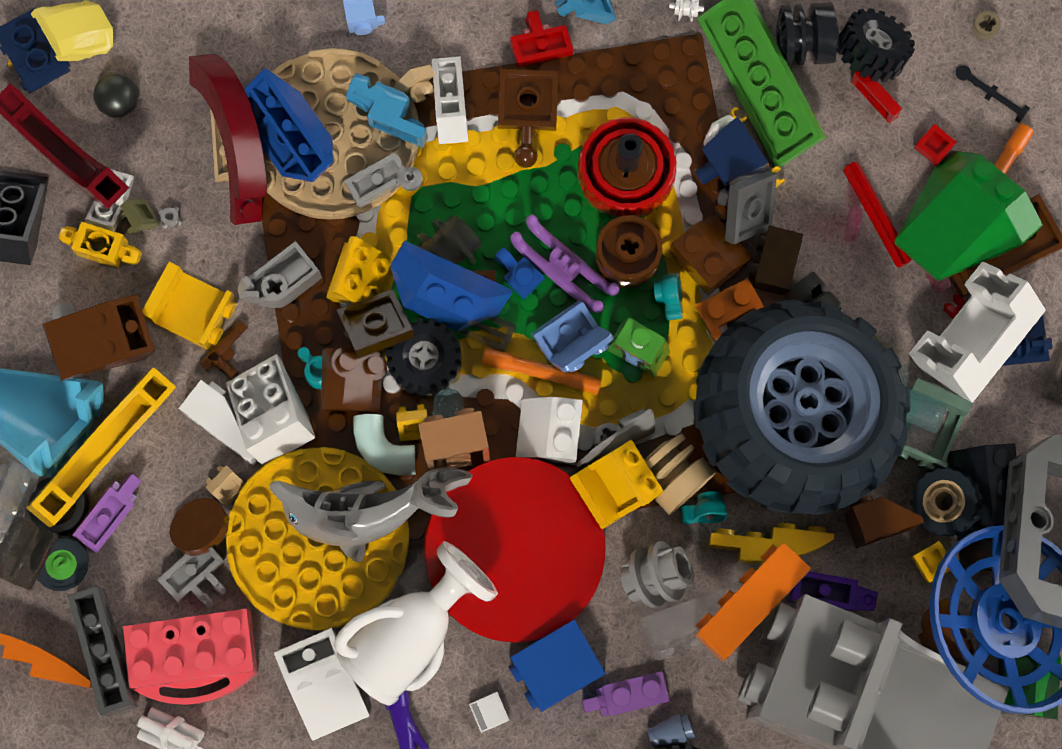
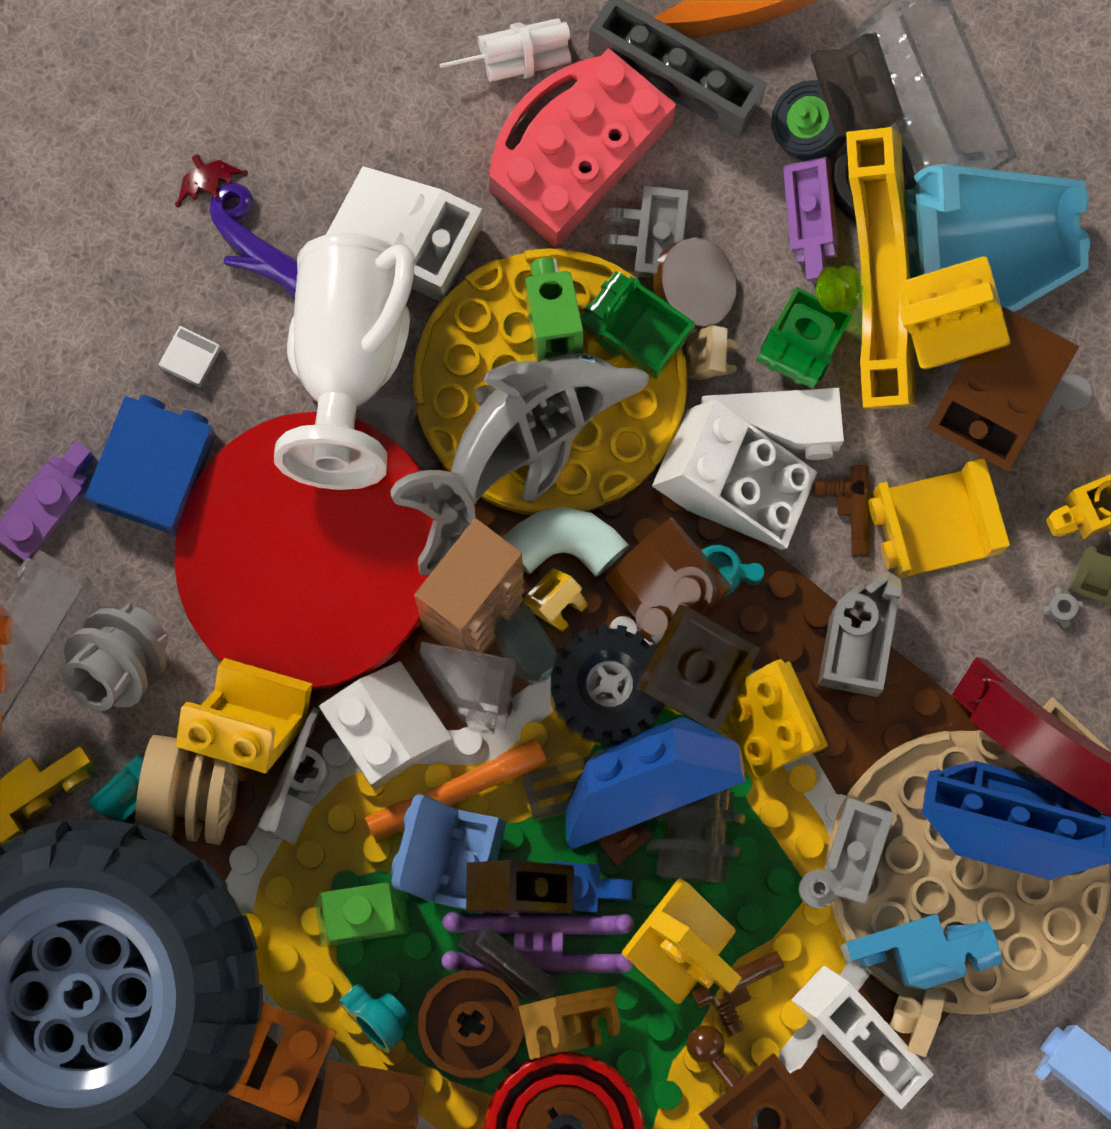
camera: 135 degrees right, 0 degrees up
(88, 390) = (953, 313): none -> yellow bracket
(130, 458) = (839, 288): none -> clear neon green wheel
(171, 450) = (803, 339): none -> green piece
(249, 525) = (636, 324): none -> green piece
(296, 553) = (552, 310): none -> bright green torso
(489, 170) = (726, 1007): none -> reddish brown hose
(492, 398) = (473, 684): none -> clear slope
(498, 206) = (683, 945): none -> yellow bracket
(552, 291) = (520, 887): none -> dark brown brick
(581, 215) = (569, 1021): none -> pearl gold hinge
(587, 263) = (508, 964): none -> clear smoke tile

